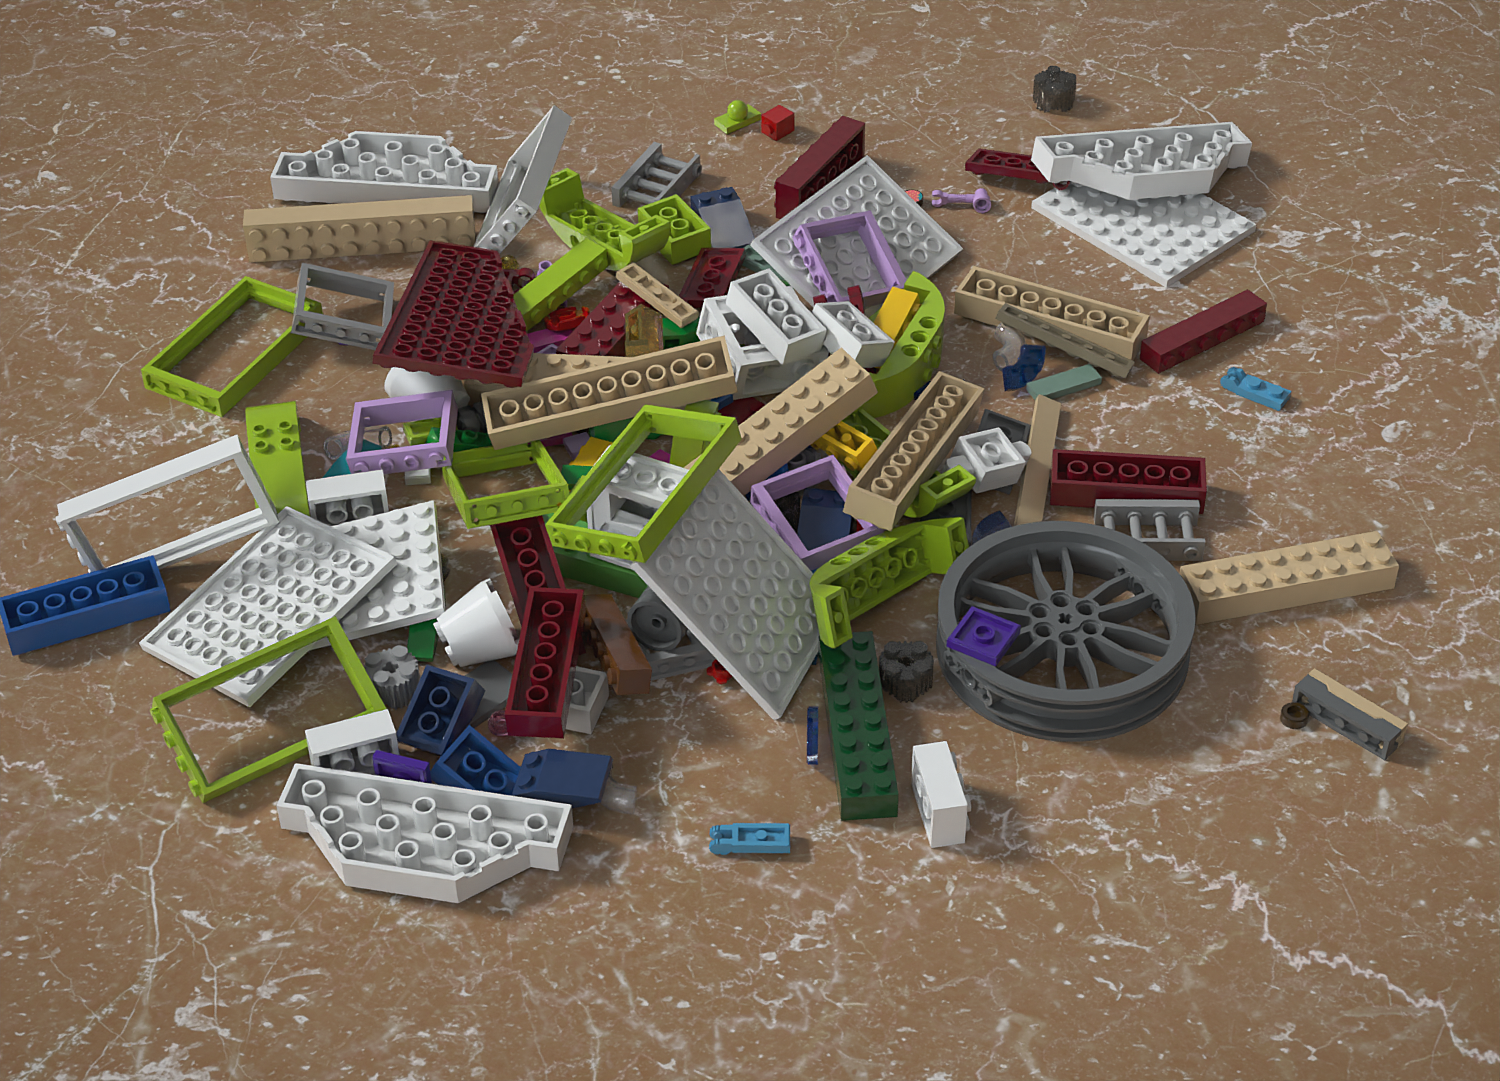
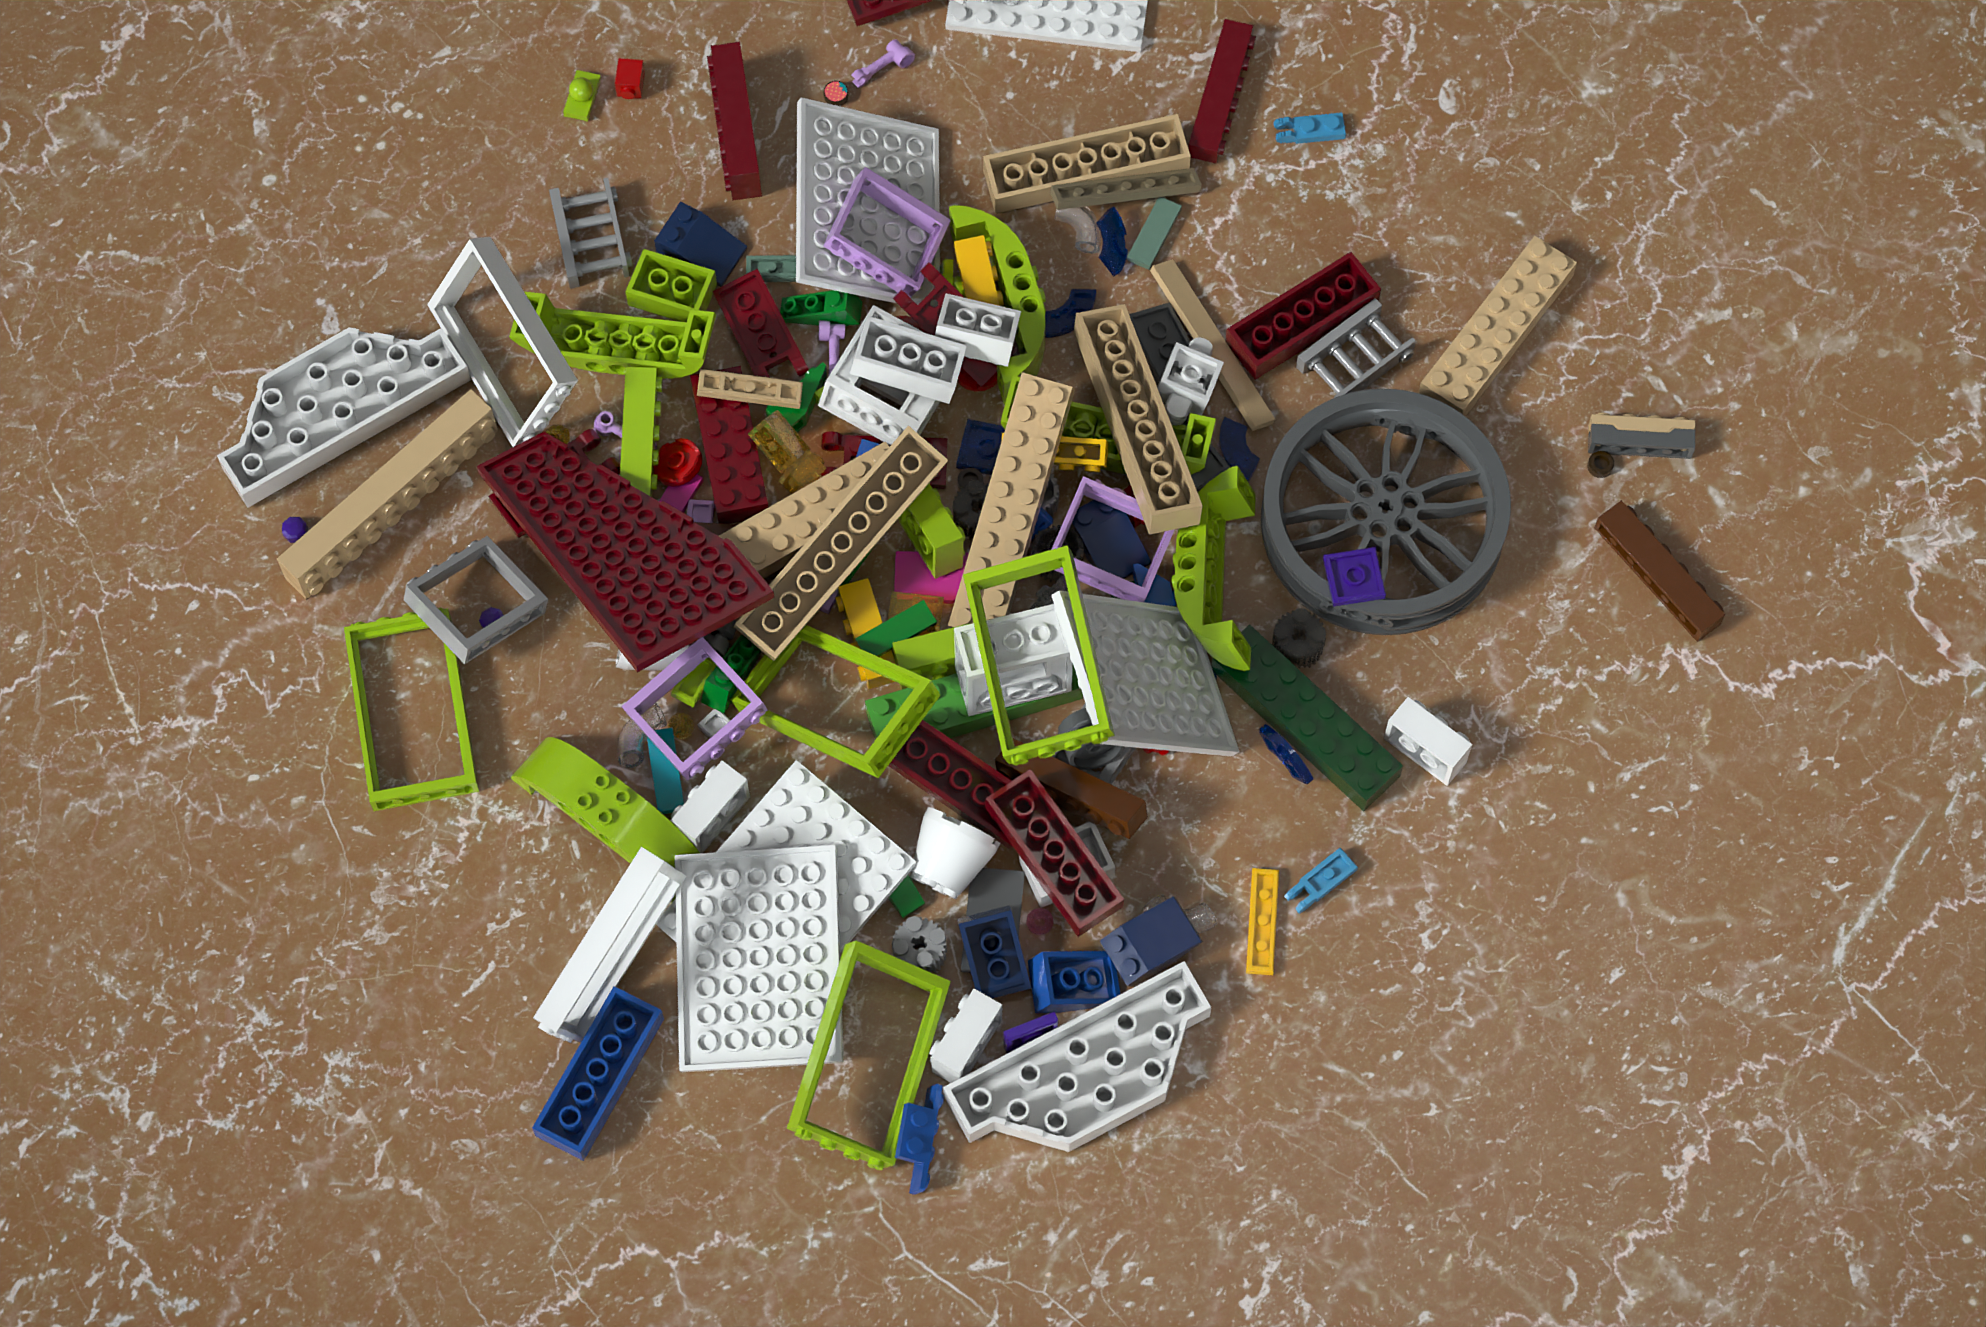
camera: 40 degrees left, 25 degrees up
(242, 790) = (917, 1135): none -> blue bracket
(673, 837) = (1262, 921): none -> yellow tile
(1274, 813) = (1660, 570): none -> reddish brown brick

